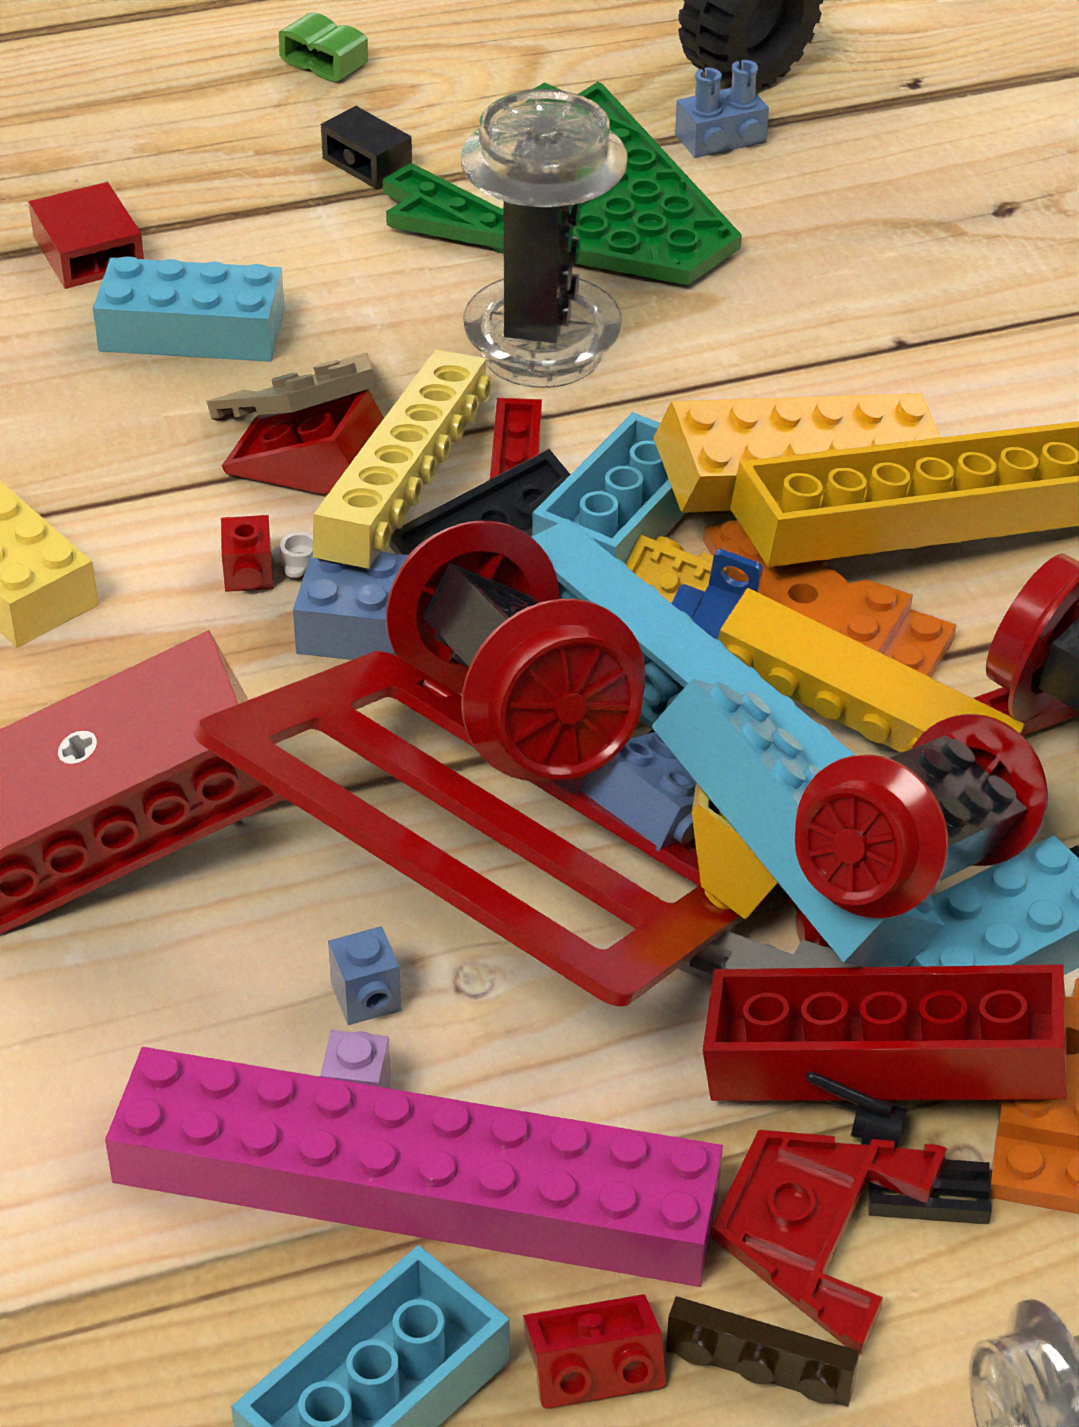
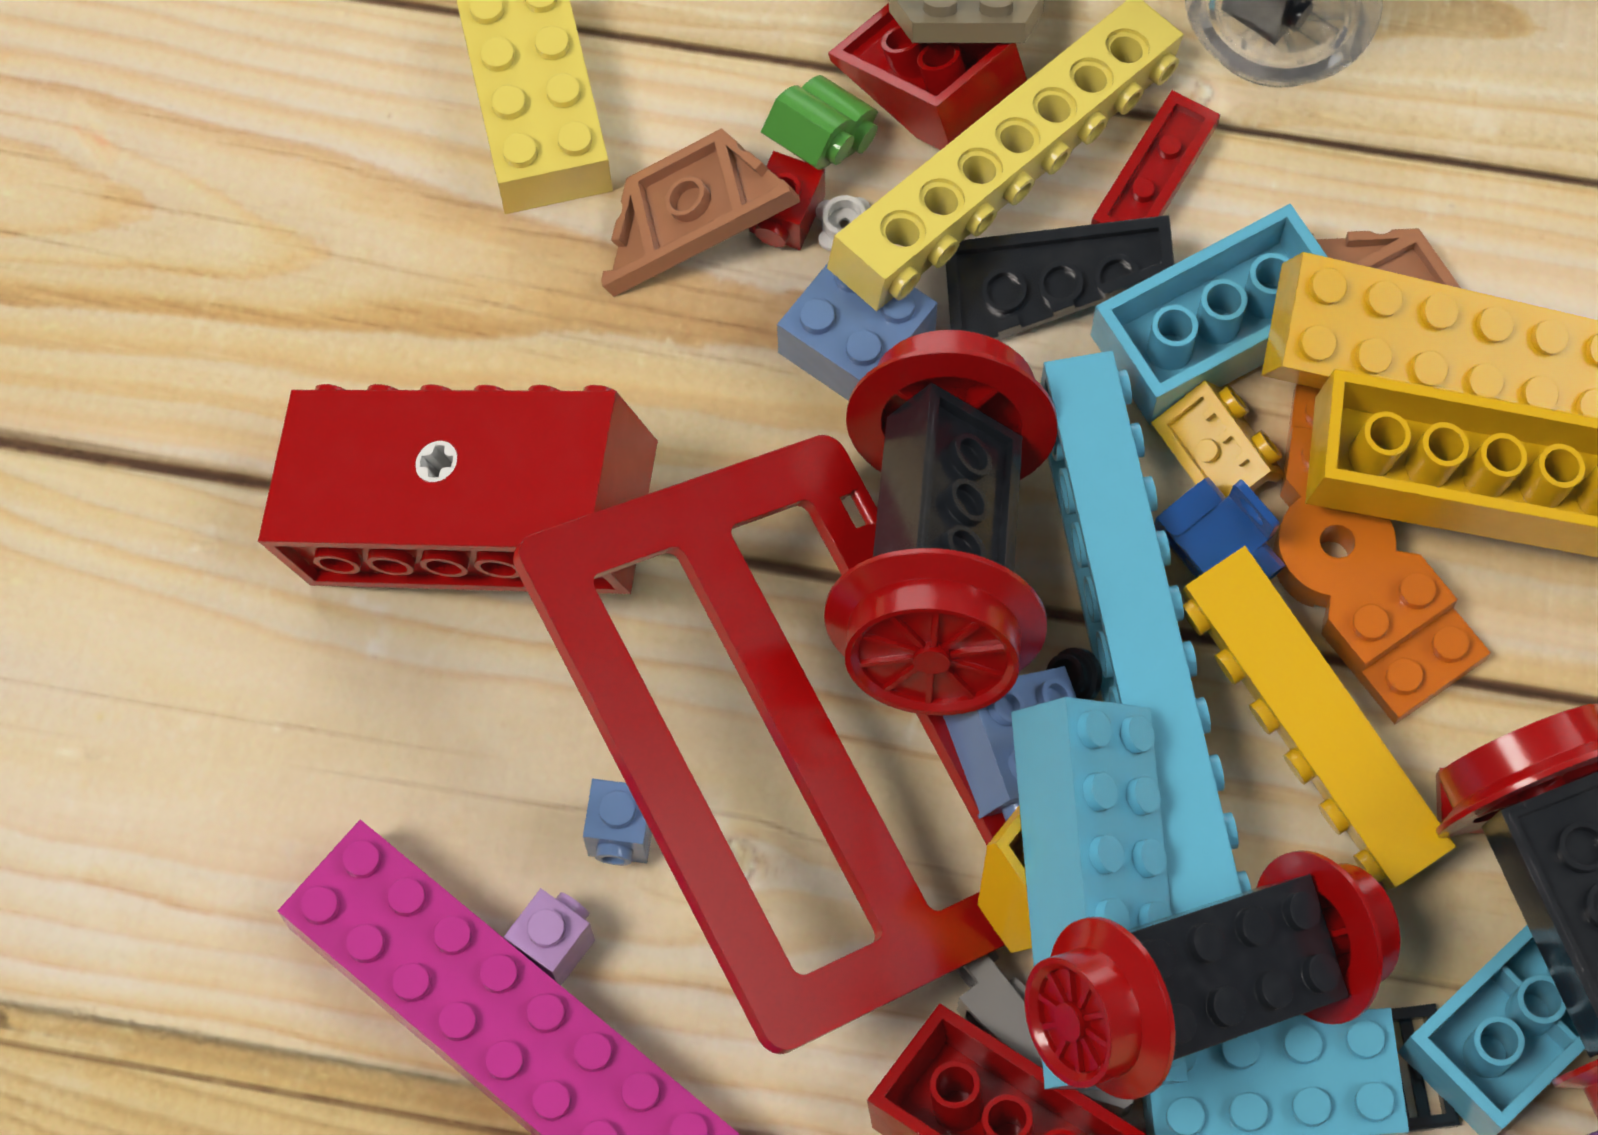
camera: 30 degrees right, 25 degrees up
(175, 573) = (690, 206): none -> nougat wing
(247, 491) = (821, 122): none -> bright green brick

